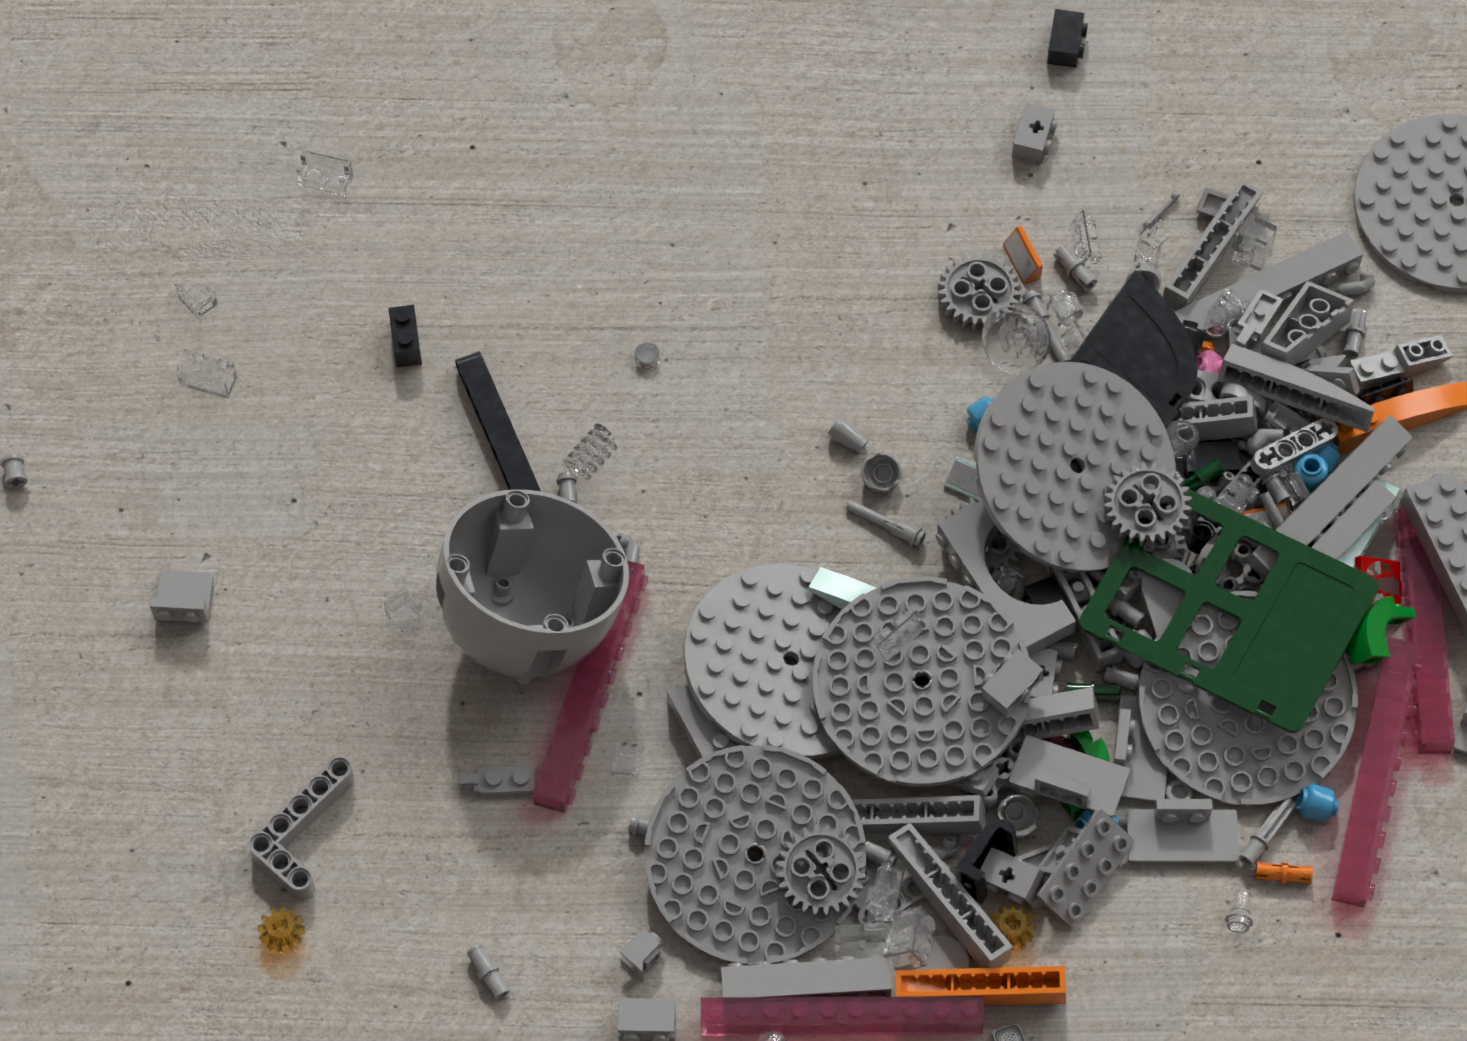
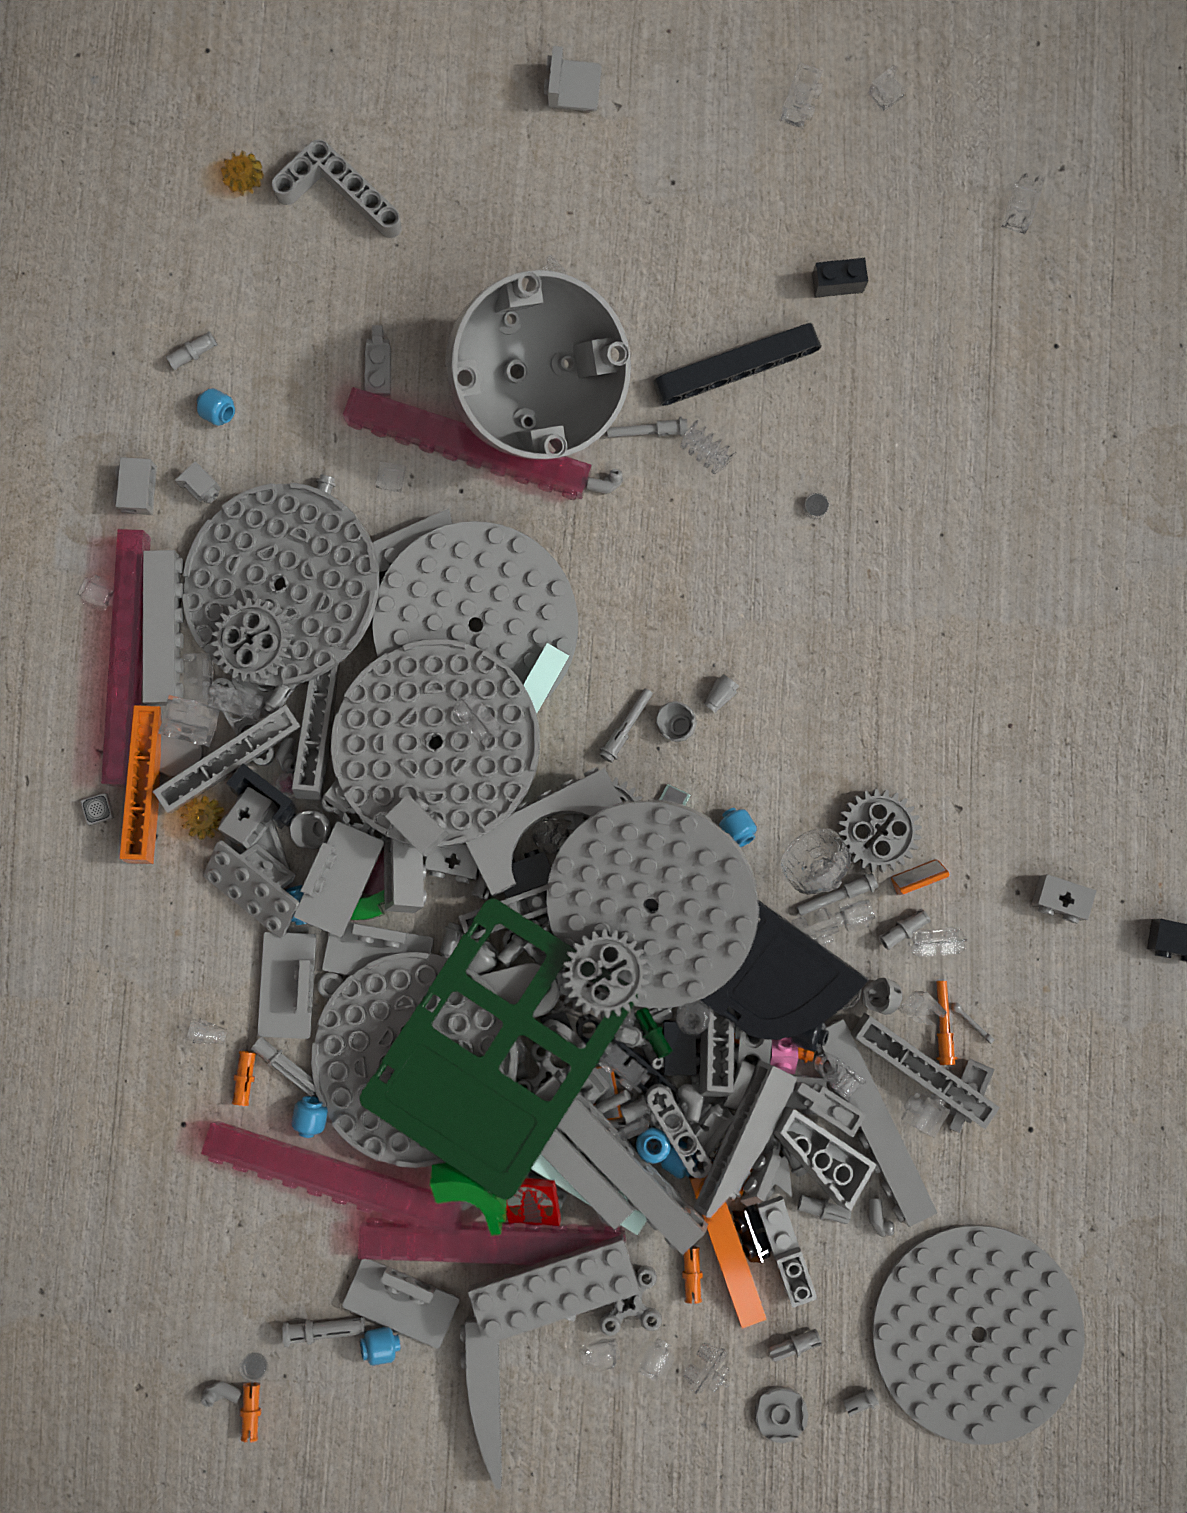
camera: 85 degrees right, 20 degrees up
(554, 941) = (215, 407): none -> dark azure head
(1101, 691) = (438, 911): dark green axle -> none
(1178, 232) = (945, 1038): none -> orange pin
(1433, 446) = (692, 1275): none -> orange pin

